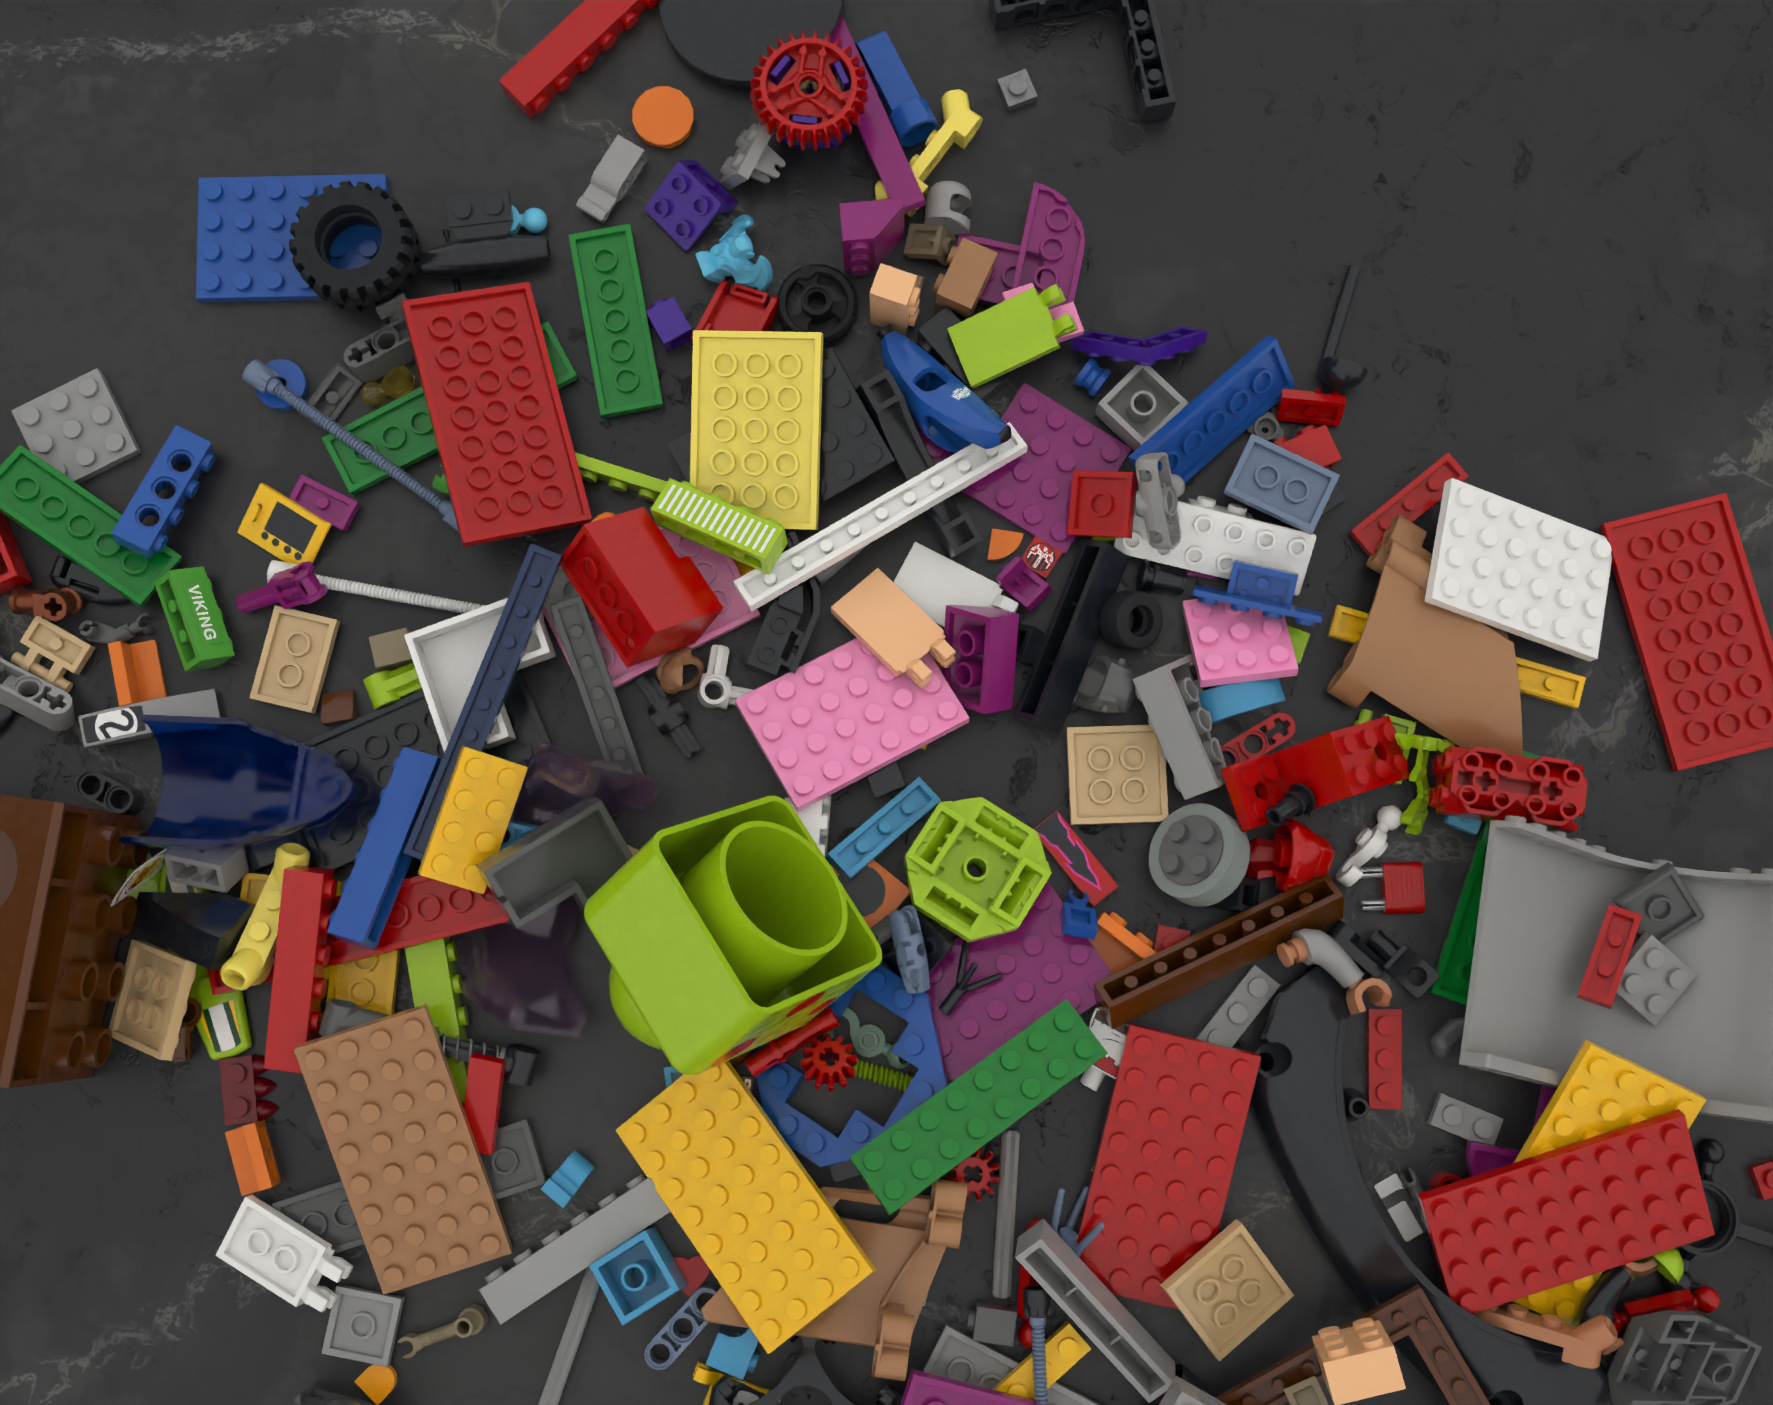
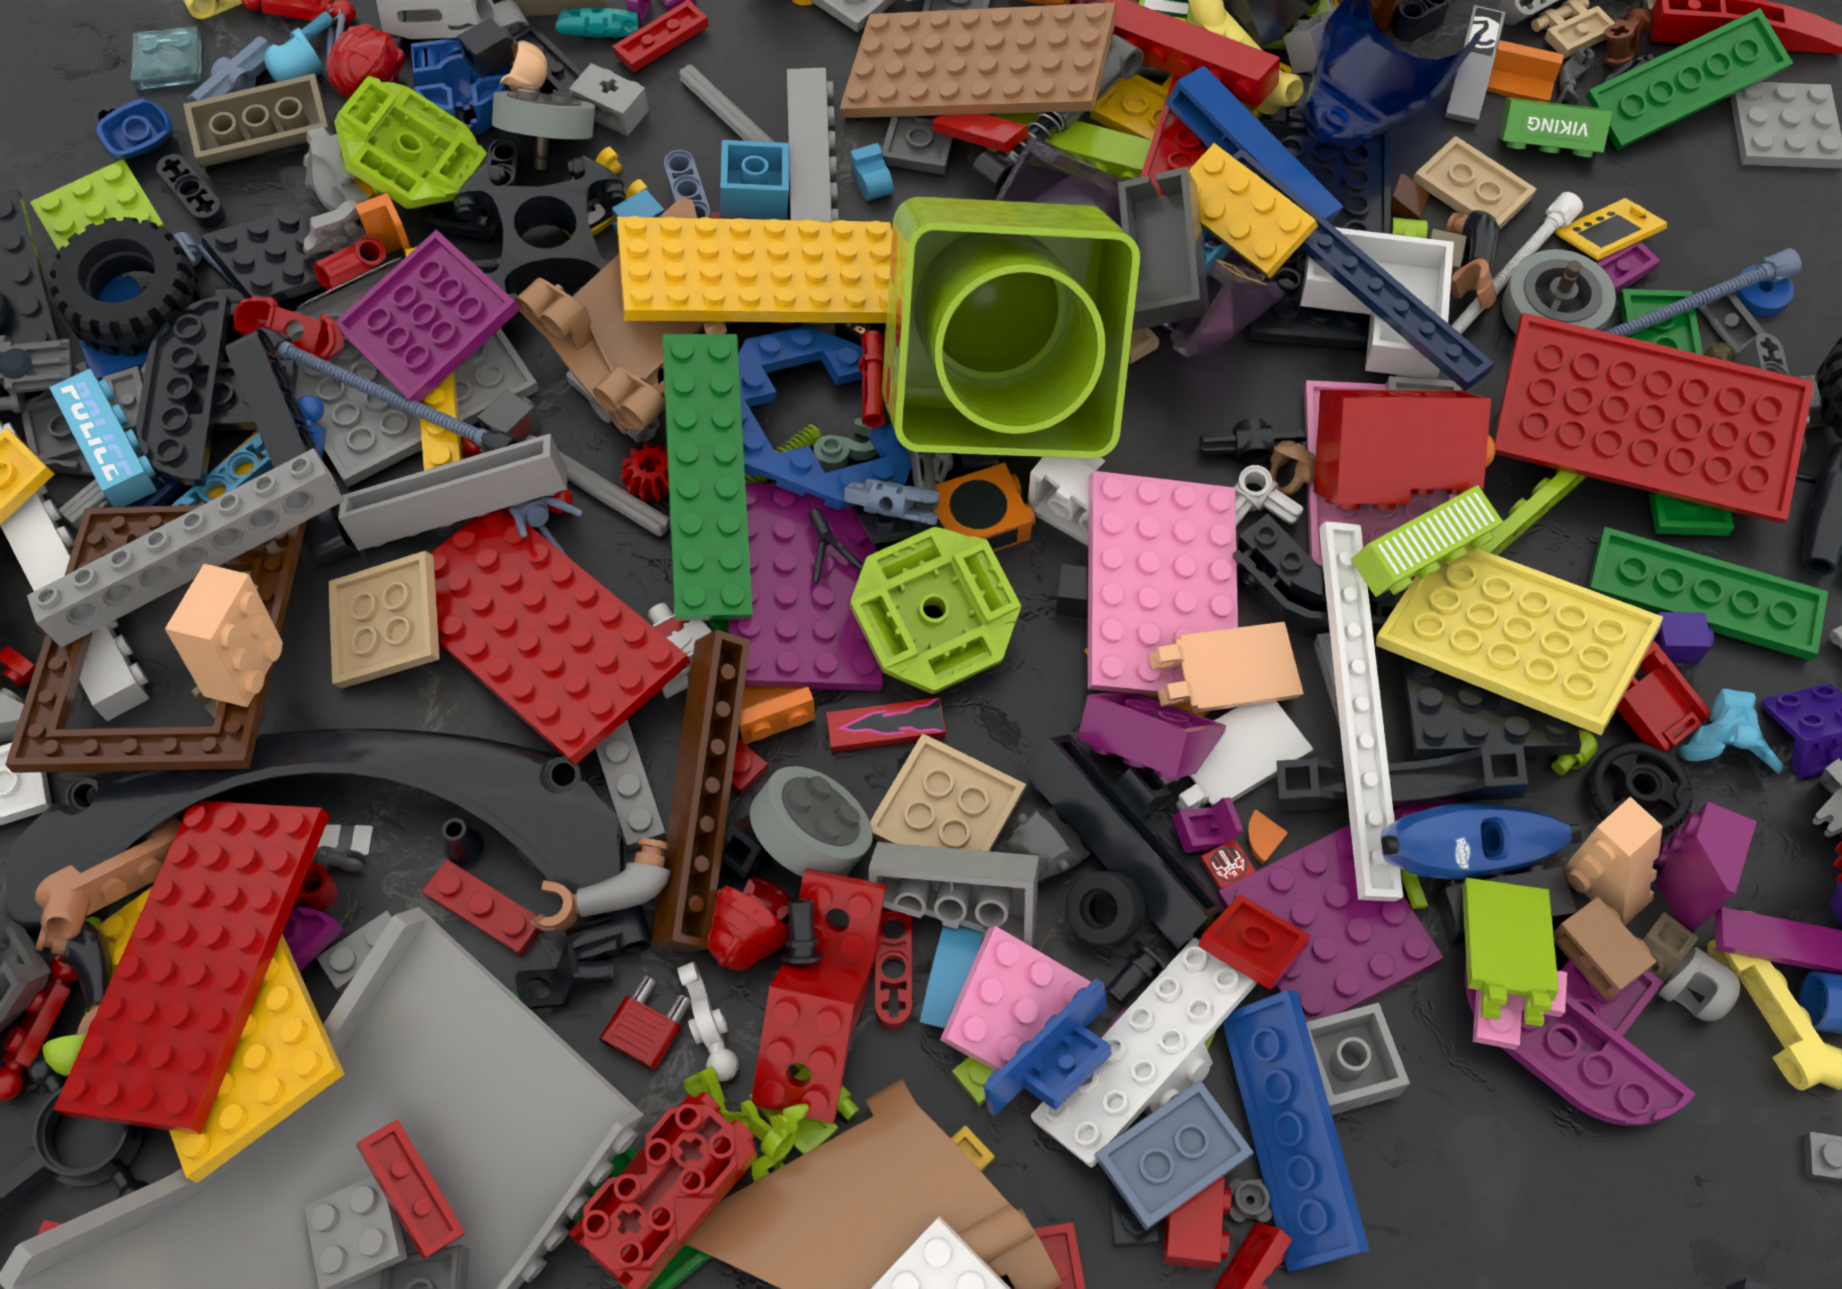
camera: 120 degrees right, 20 degrees down
(179, 447) = (1693, 131): blue brick -> none
(288, 587) = (1549, 201): magenta connector -> none
(356, 626) = (1483, 242): none -> piece
(392, 537) = (1559, 288): none -> wheel
(469, 1323) = (804, 47): dark tan brick -> none
(595, 683) = (1298, 382): dark grey plate -> none
(817, 1067) = (847, 394): red gear -> none
(882, 829) = (1026, 553): dark azure plate -> none
(1077, 918) = (824, 677): blue plate -> none
(1093, 377) = (1413, 1034): blue wheel -> none
(1144, 350) = (1419, 1083): dark purple plate -> none
(1159, 499) = (1228, 989): light grey piece -> none

